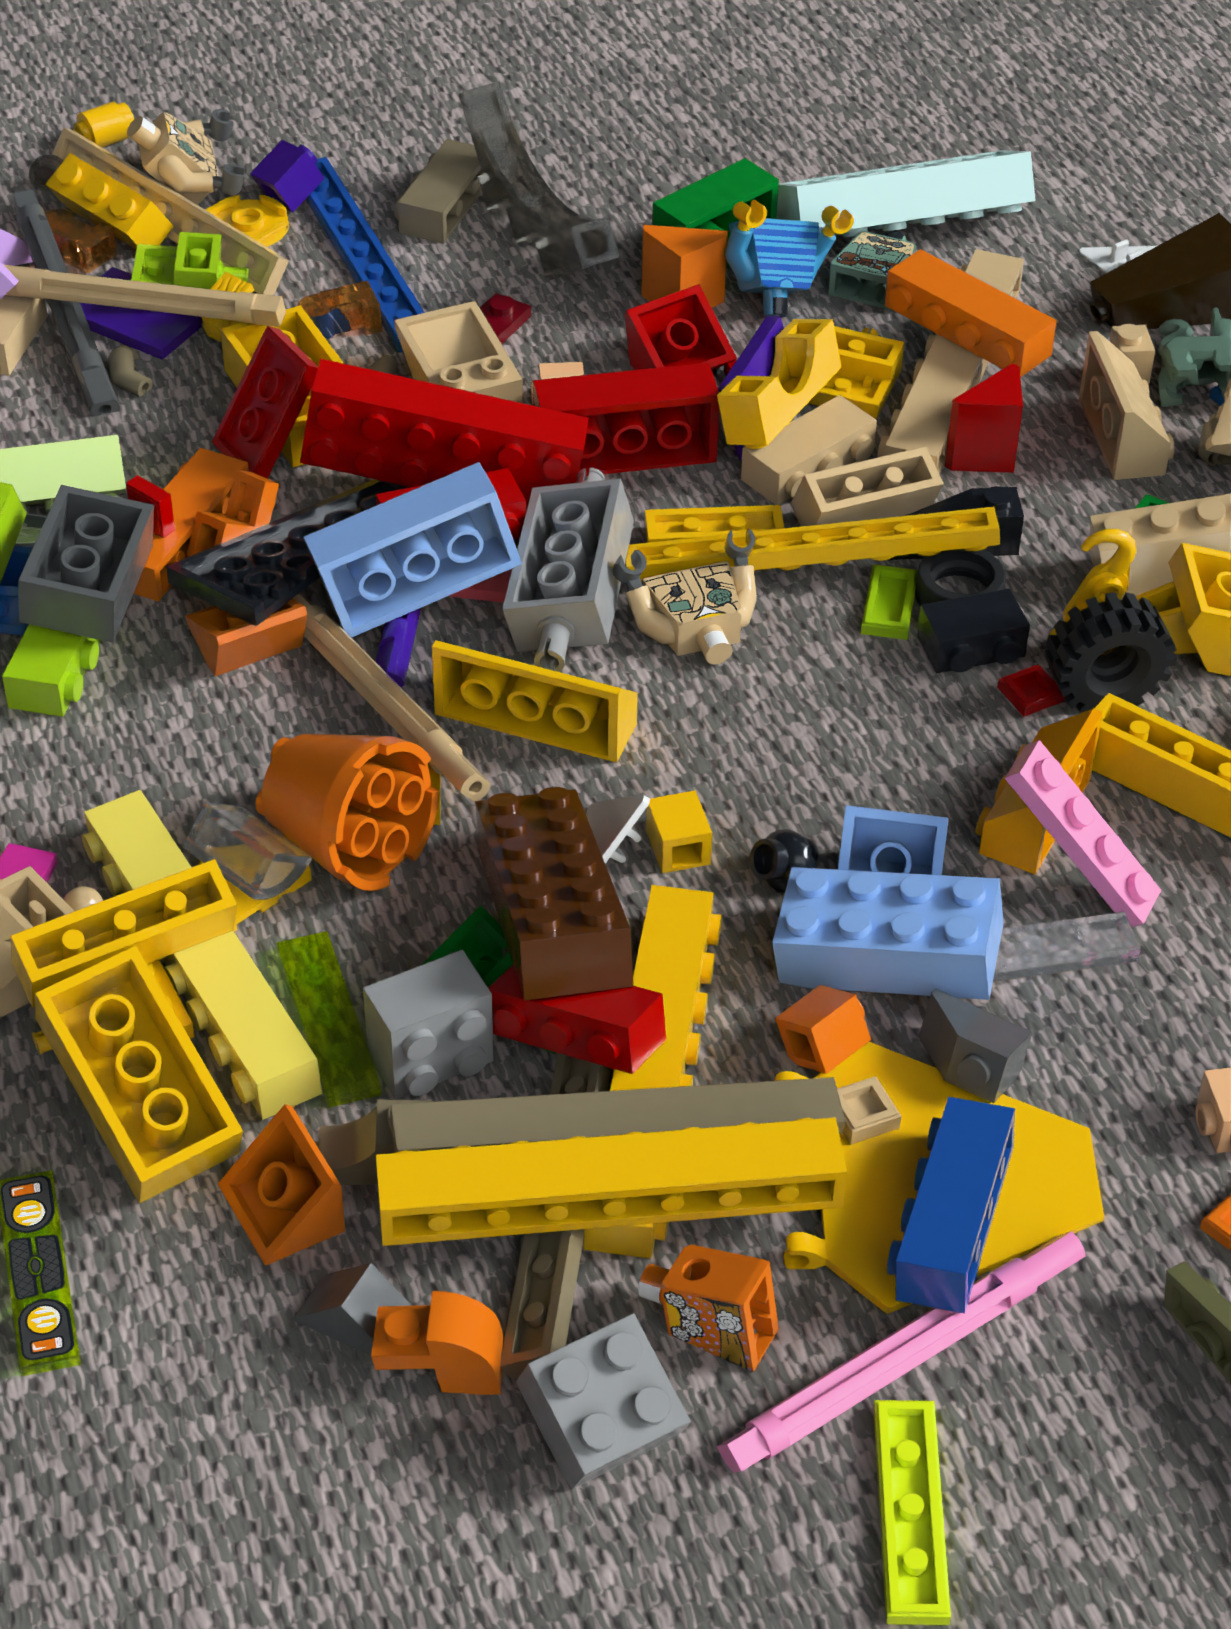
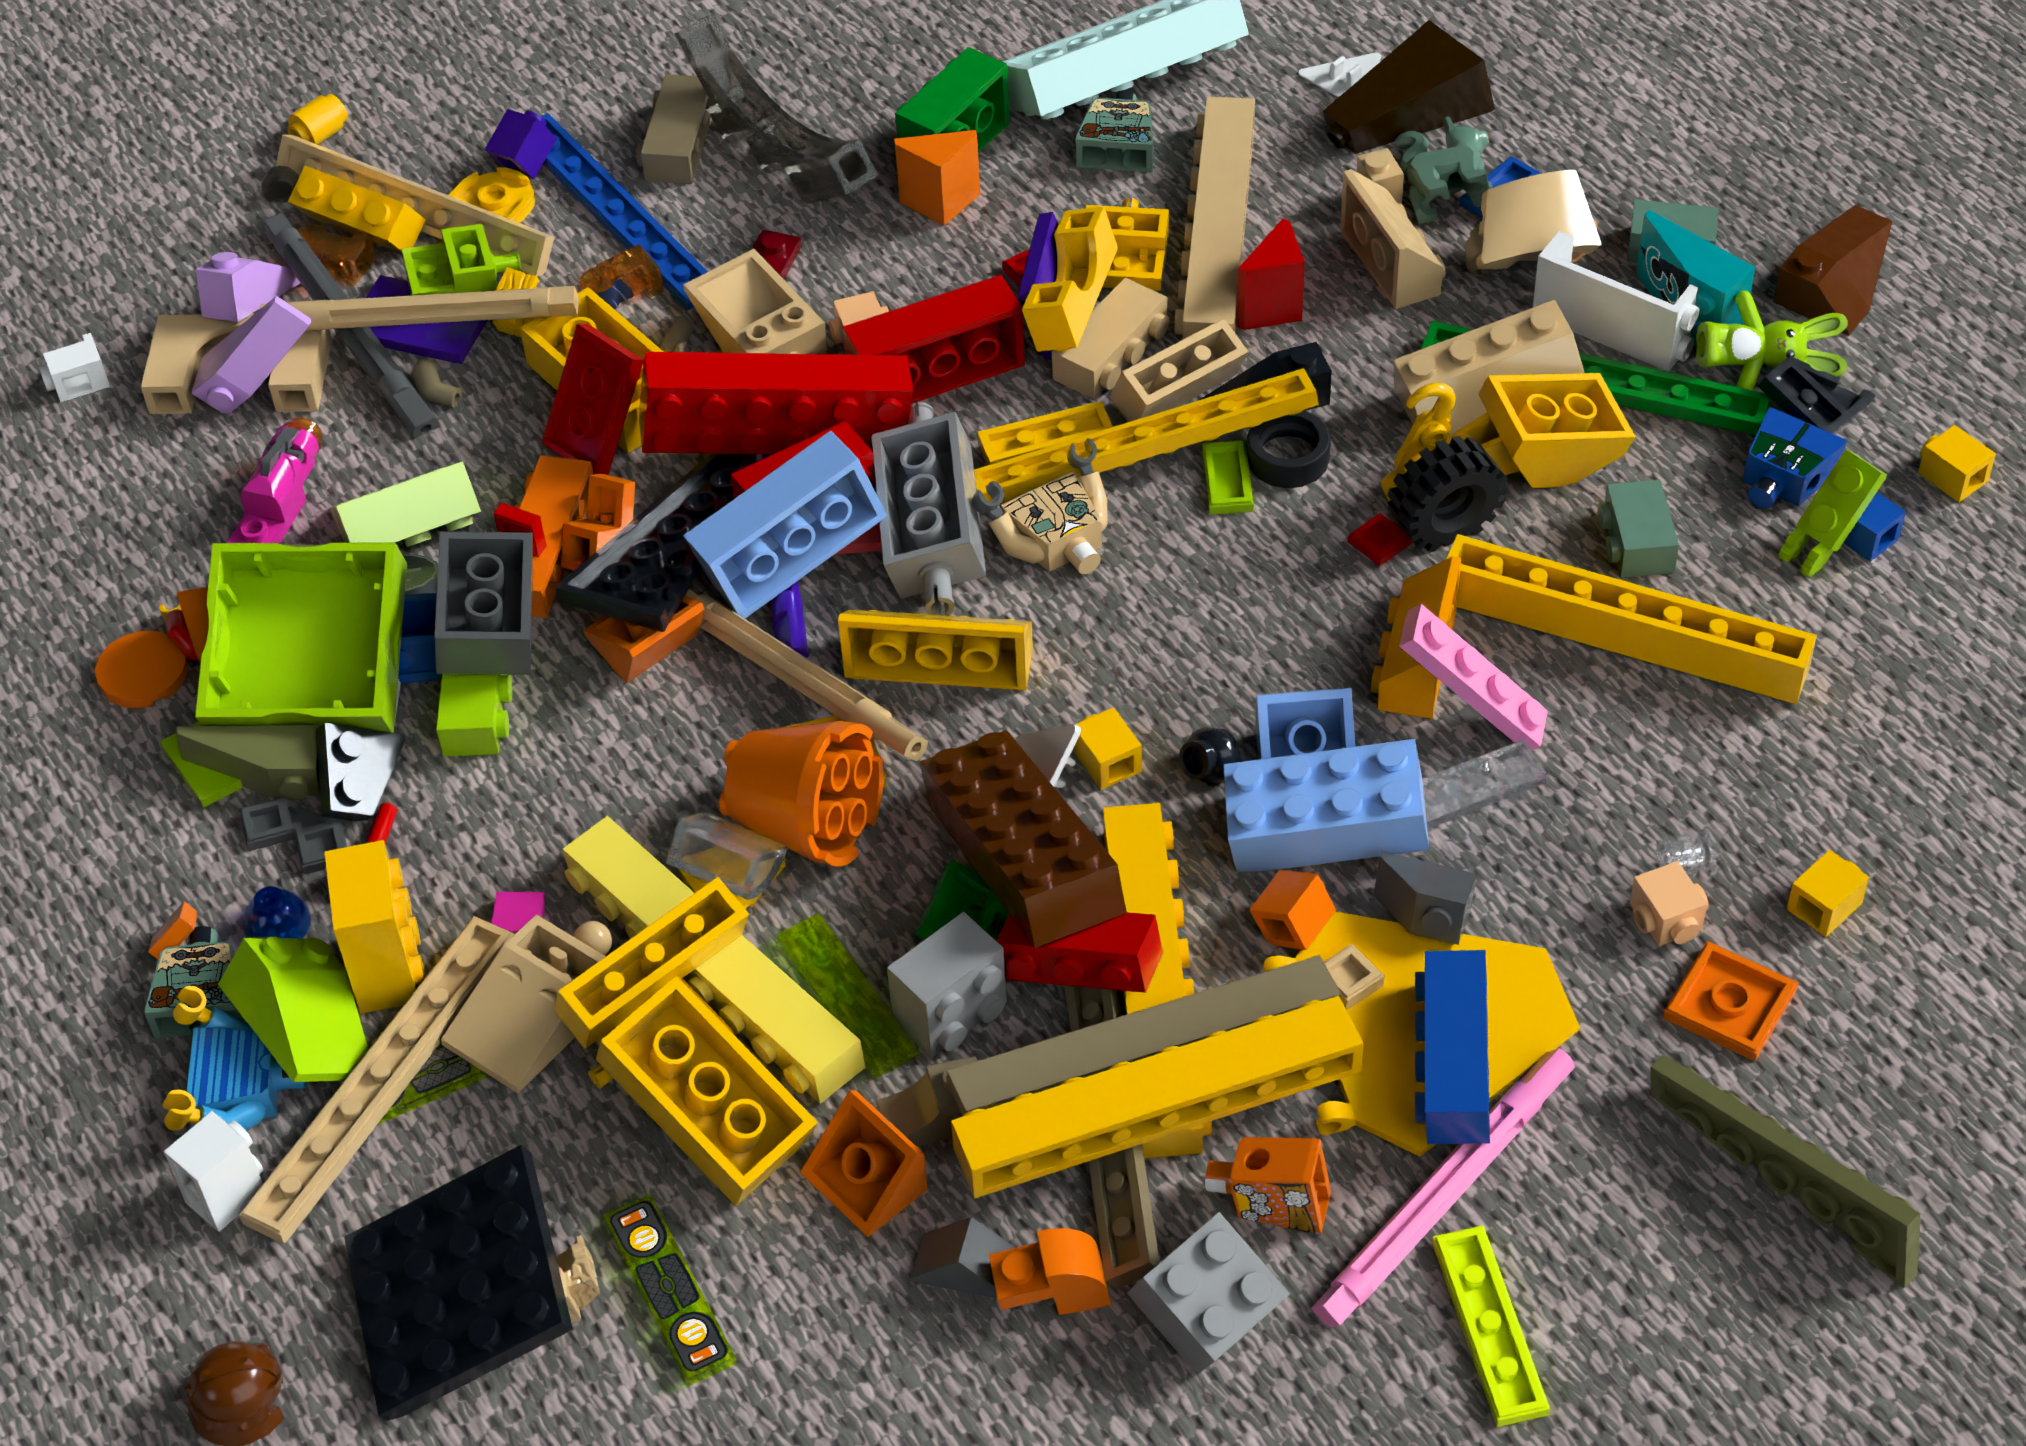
camera: 10 degrees left, 5 degrees up
(184, 157) = (411, 144): tan torso -> none
(676, 332) = (953, 246): red slope -> none
(779, 254) = (1027, 140): torso -> none
(969, 312) = (1224, 169): orange brick -> none
(973, 631) = (1313, 493): black brick -> none

